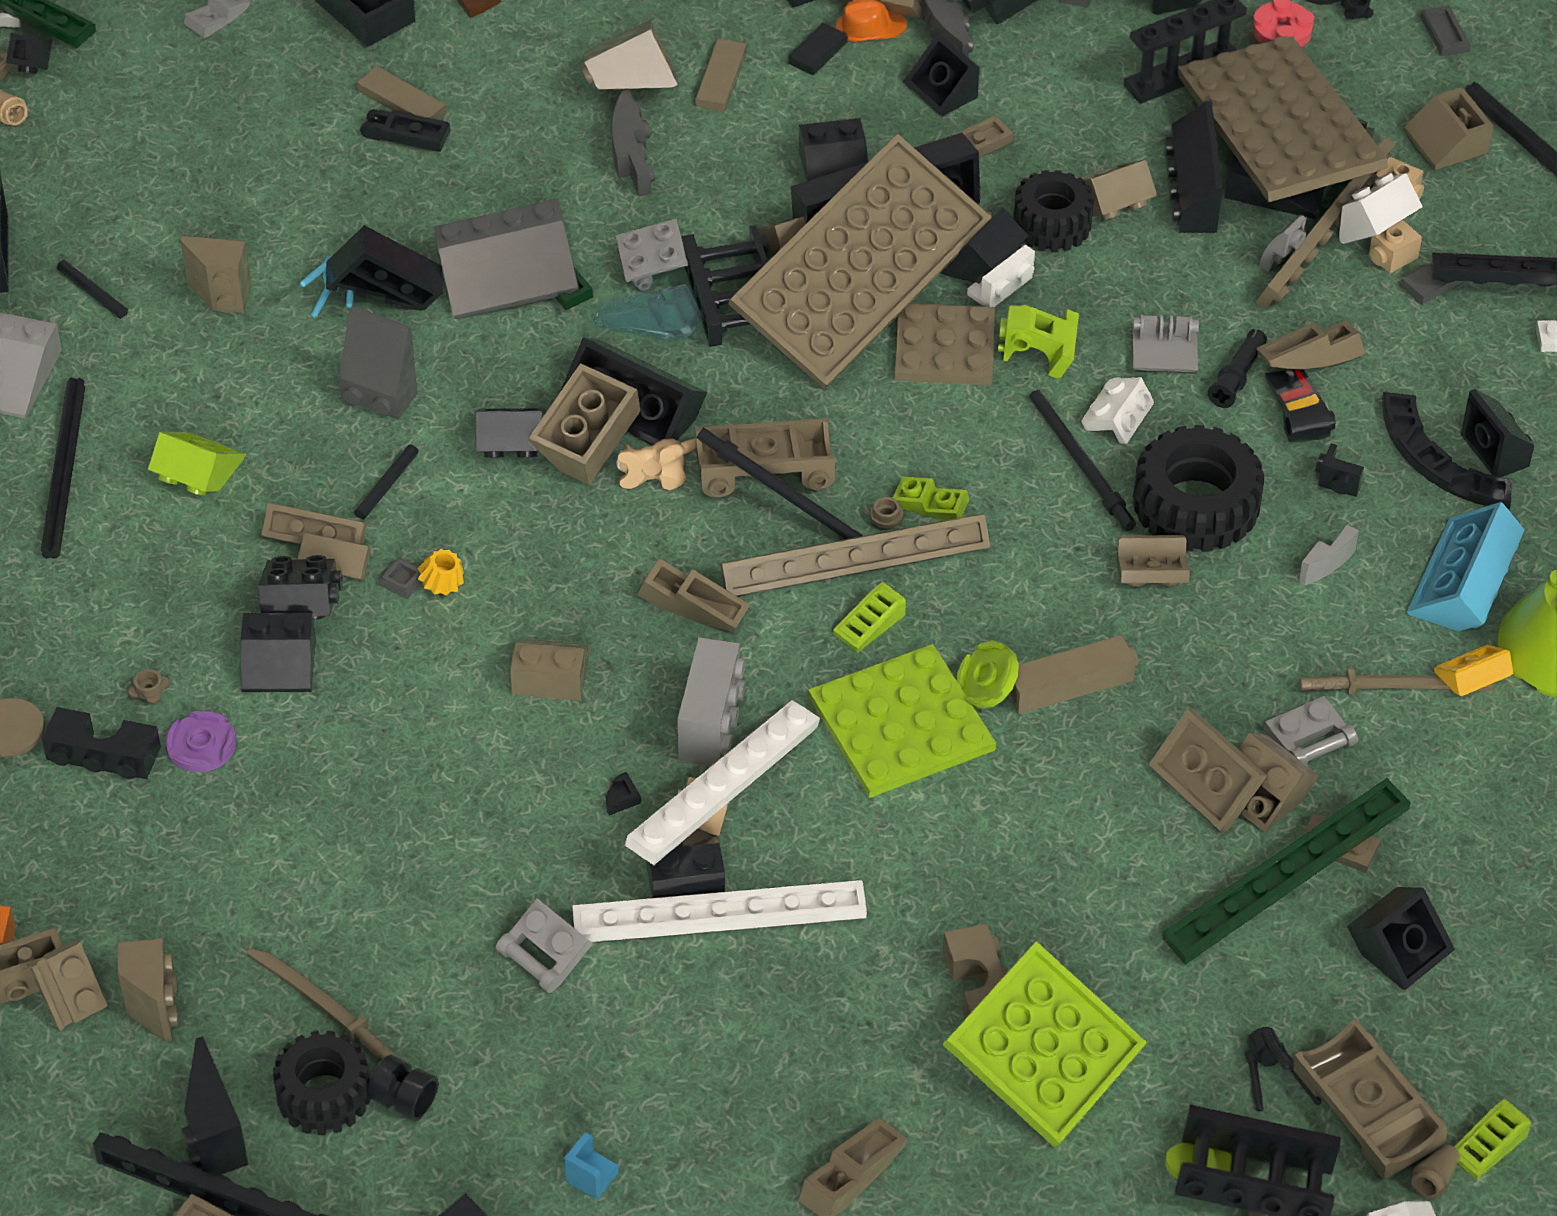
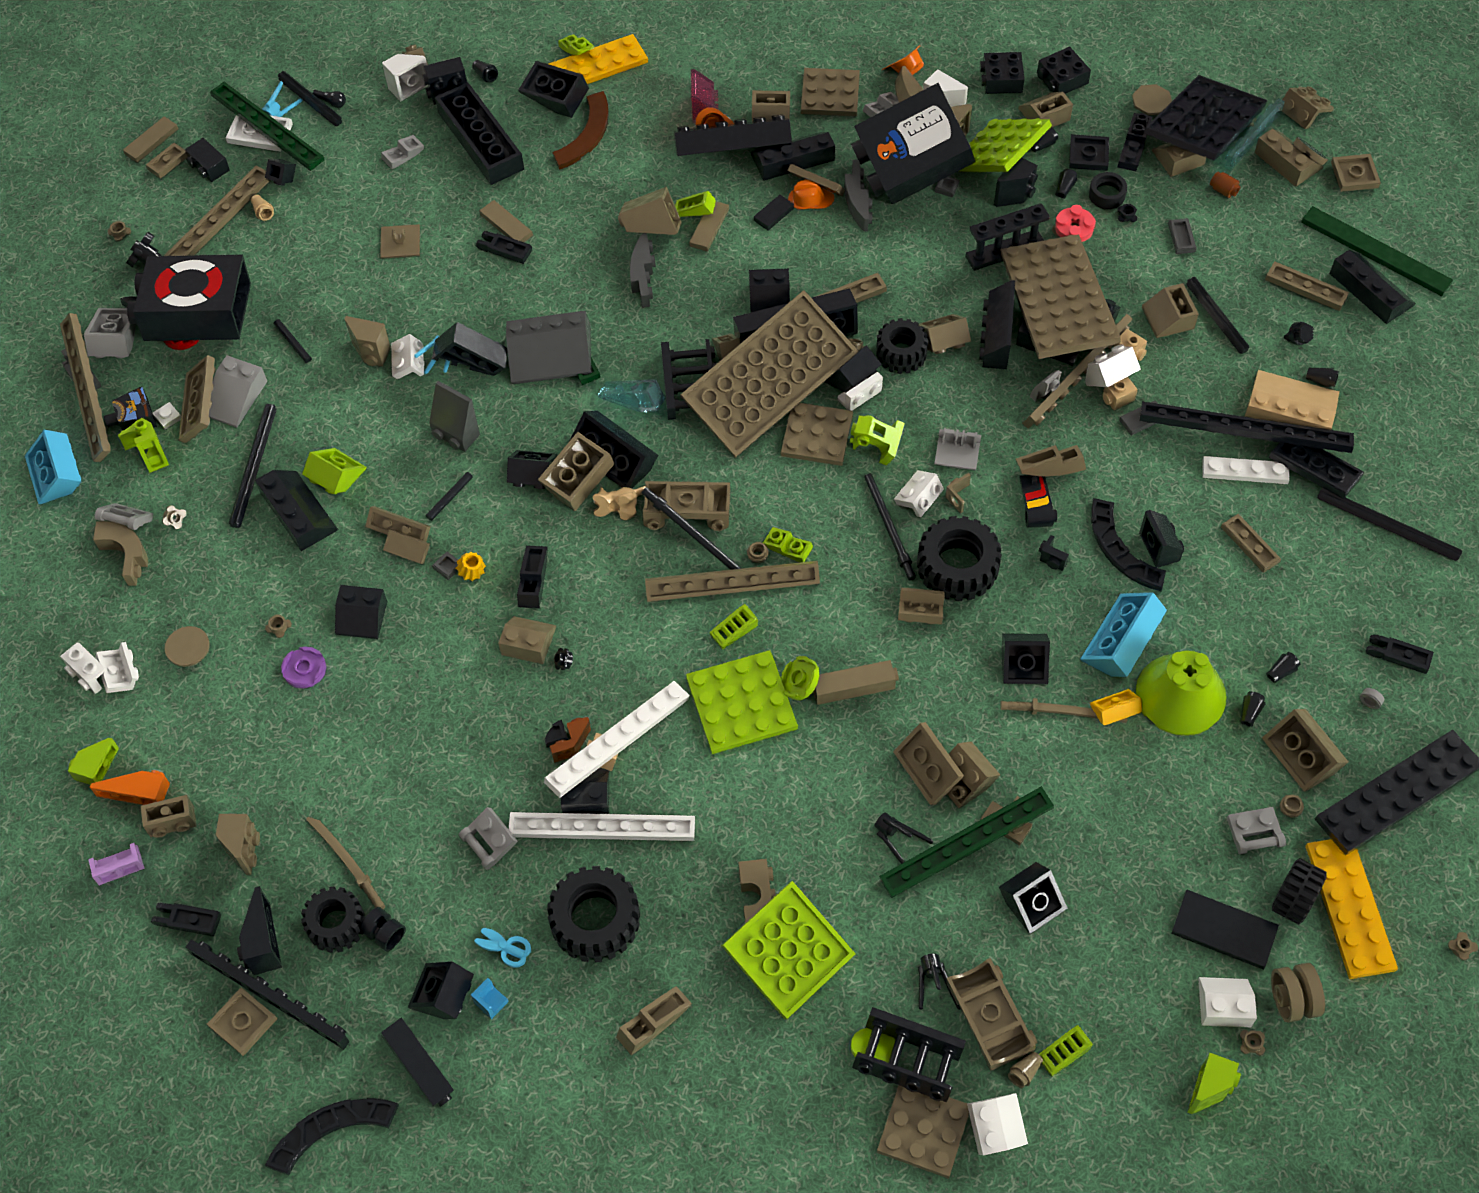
camera: 10 degrees right, 10 degrees up
(67, 984) = (189, 833): dark tan plate -> none
(83, 1110) = (188, 919): none -> black hinge
(126, 753) = (256, 672): black arch -> none
(143, 519) = (295, 507): none -> black slope
(237, 136) = (400, 241): none -> dark tan piece
(281, 293) = (403, 357): none -> white bracket
(300, 586) = (379, 568): black brick -> none
(512, 1162) = (441, 990): none -> black slope
(541, 580) = (532, 577): none -> black slope
(586, 1091) = (498, 943): none -> medium azure piece
(613, 687) = (563, 659): none -> black plate
(651, 252) = (640, 351): light grey hinge -> none
(654, 786) = (578, 732): none -> dark orange slope
(692, 597) = (624, 600): dark tan slope -> none
(697, 46) = (701, 203): none -> lime slope
(710, 702) = (619, 679): light grey brick -> none
(741, 1067) = (588, 885): none -> black tyre
(944, 76) = (849, 241): black slope -> none
(1163, 864) = (889, 825): none -> black plant
(1172, 396) = (956, 486): none -> dark tan bracket
(1233, 376) = (998, 476): black pin -> none
(1308, 724) = (1001, 734): light grey plate -> none
(1325, 616) = (1025, 658): none -> black slope
(1326, 559) = (1032, 617): light grey slope -> none

